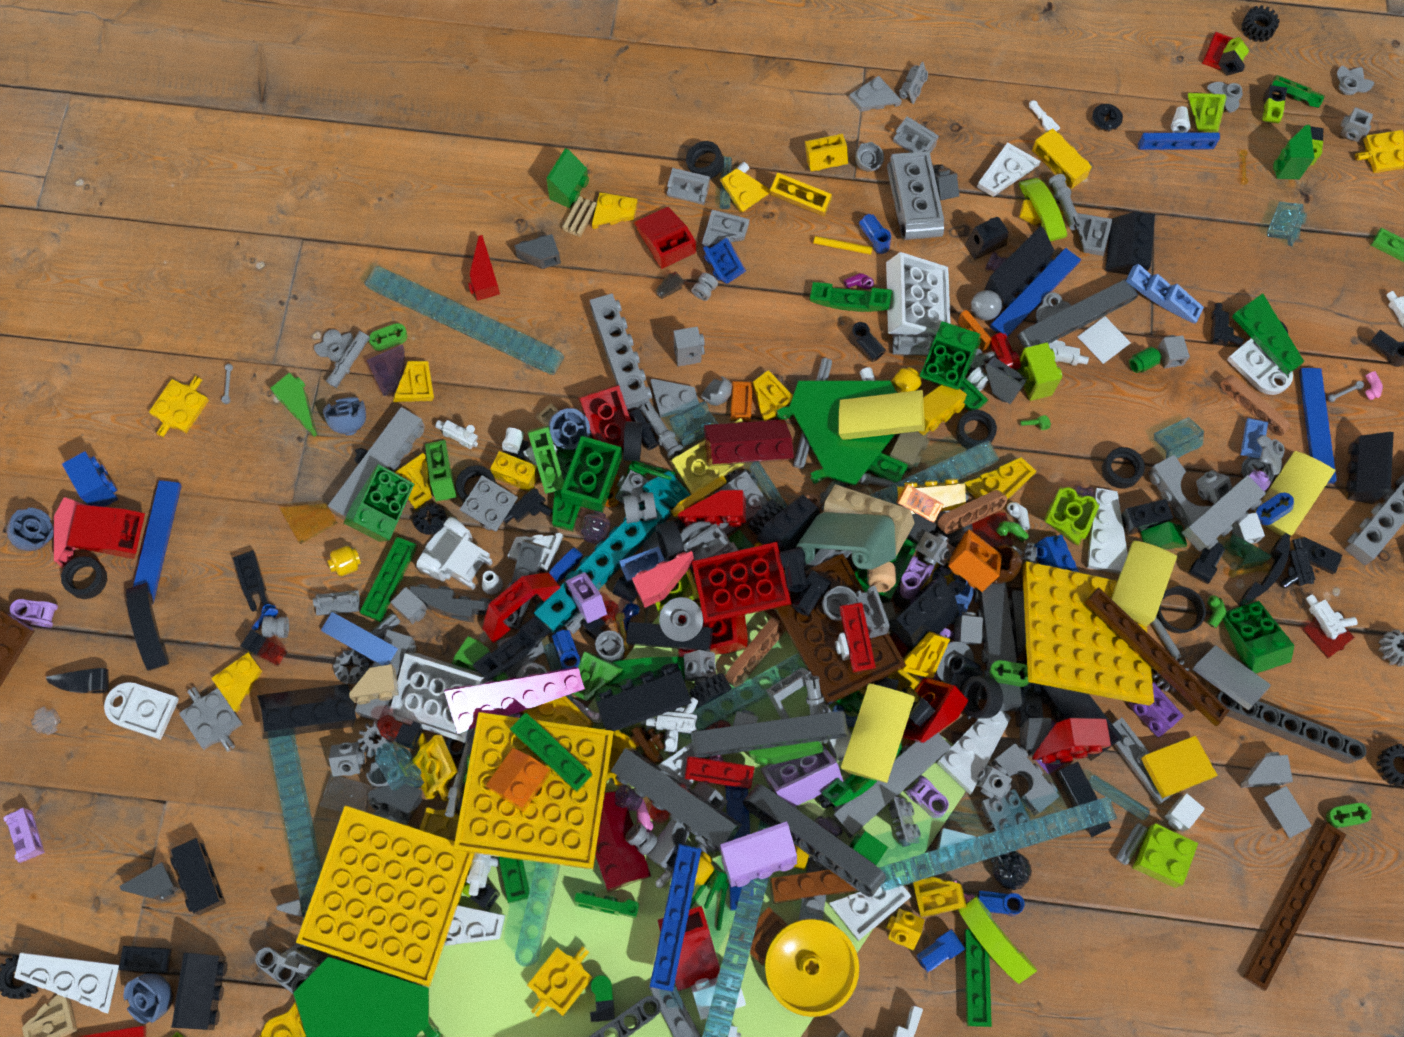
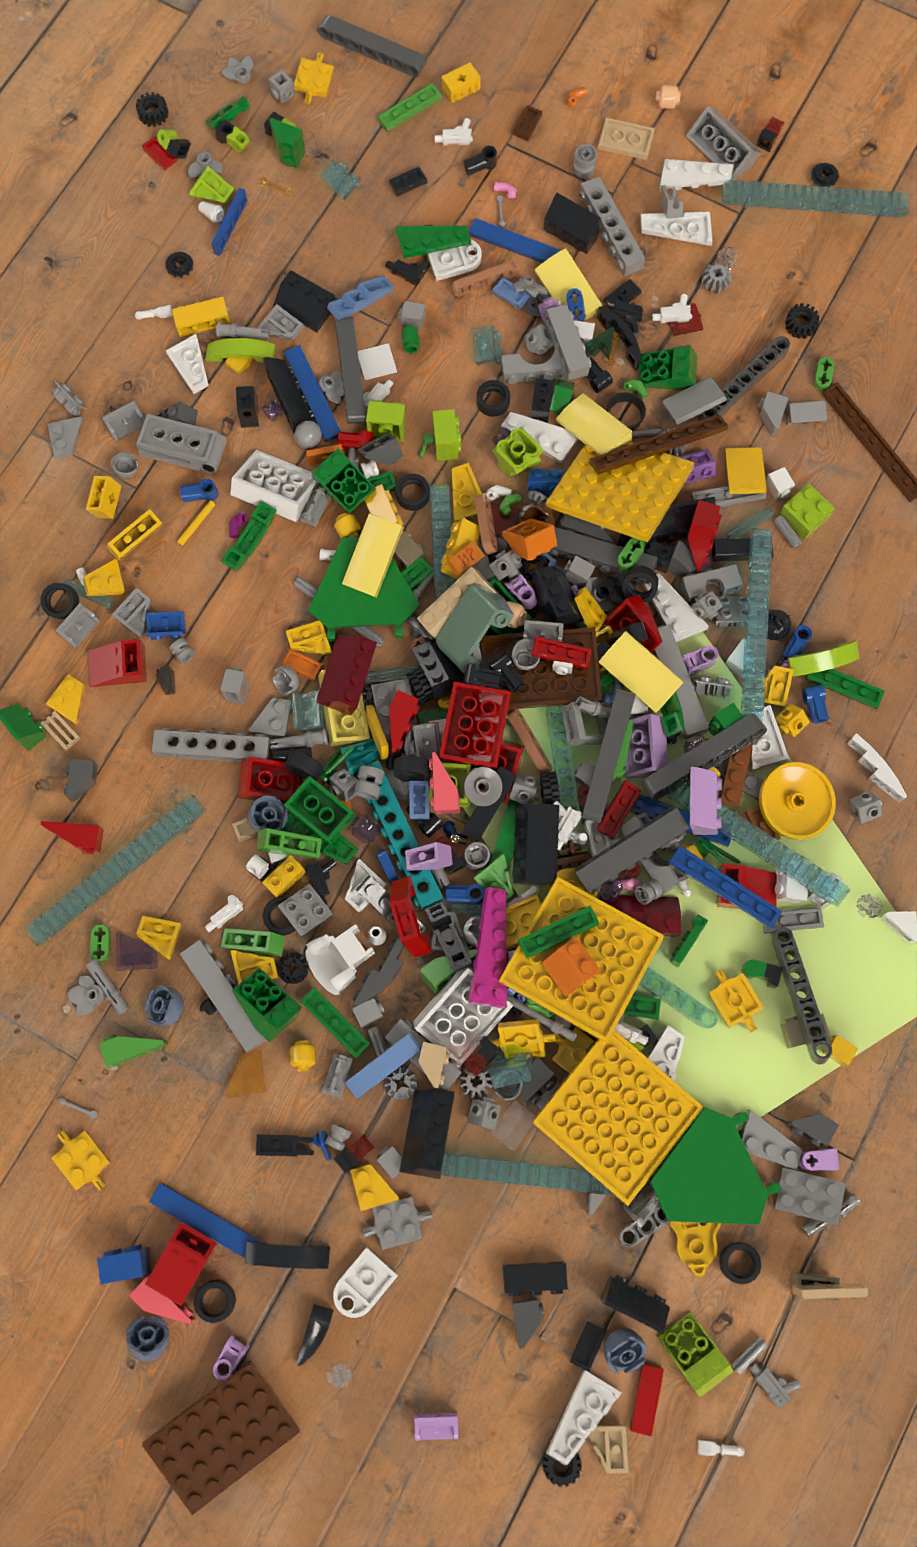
camera: 65 degrees left, 5 degrees up
(268, 684) = (390, 1160): none -> light grey brick
(867, 343) = (298, 542): black piece -> none
(1053, 435) = (446, 435): none -> lime brick
(1324, 286) = (408, 181): none -> black plate

